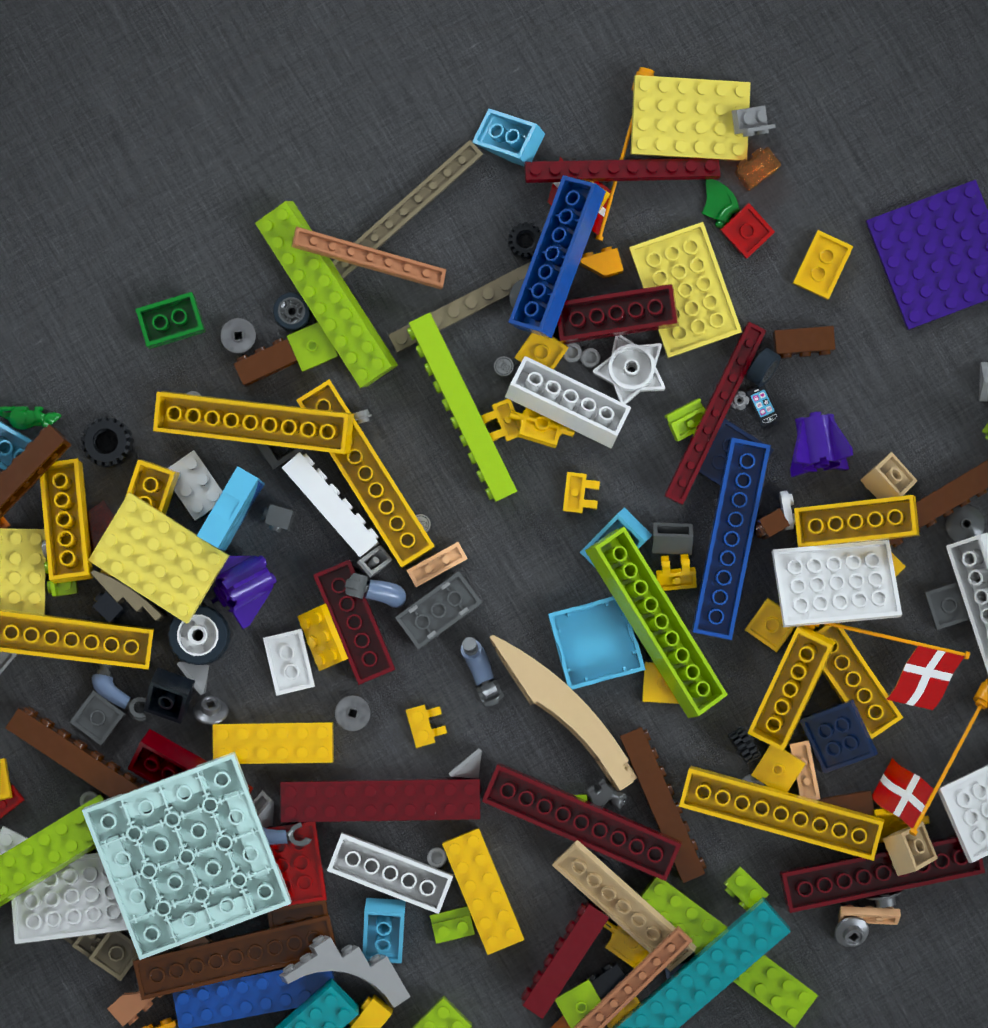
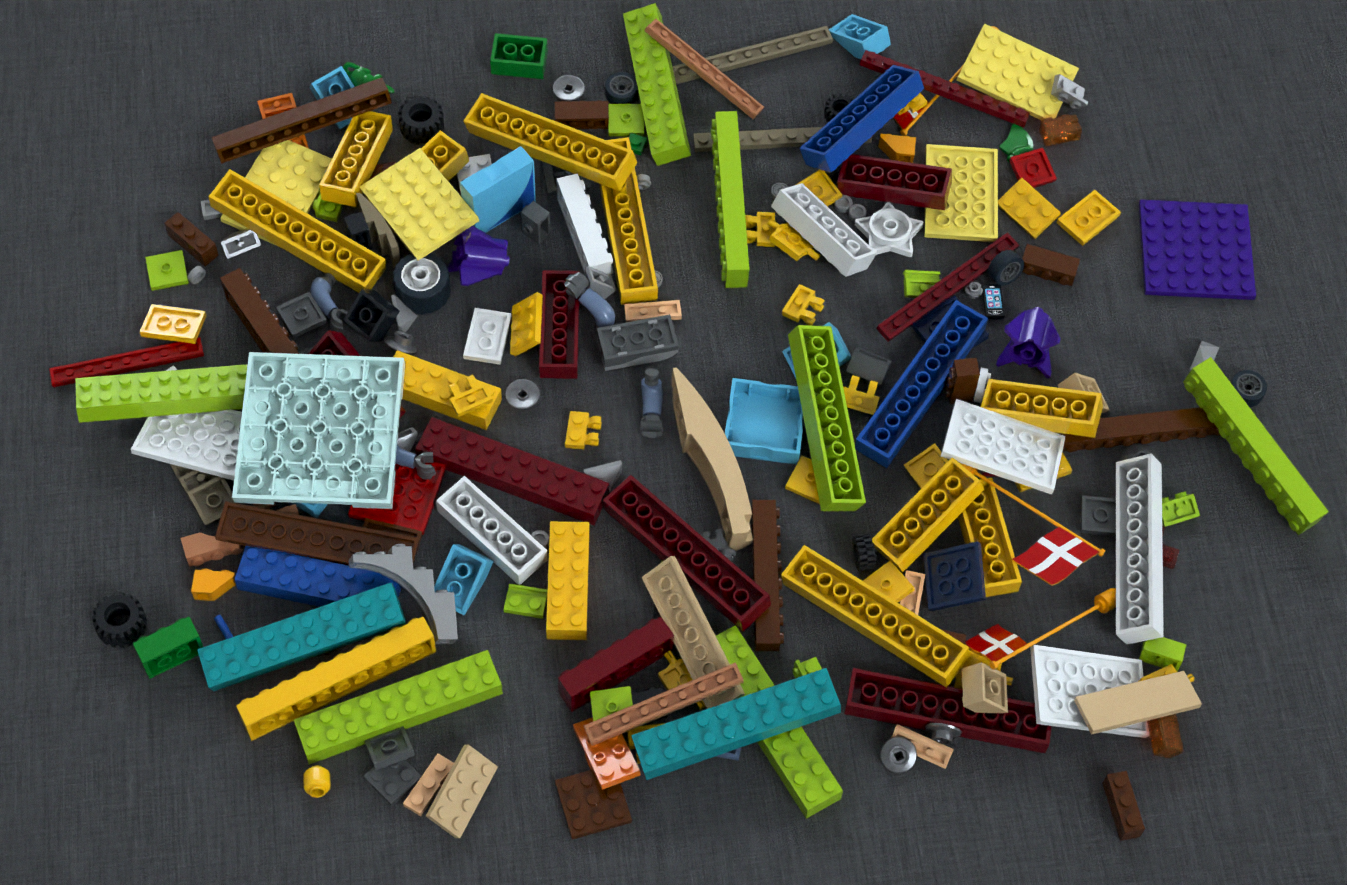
camera: 25 degrees right, 25 degrees down
(311, 754) = (470, 399): none -> yellow plate
(335, 371) = (637, 143): none -> green plate
(759, 281) = (1028, 208): none -> yellow plate

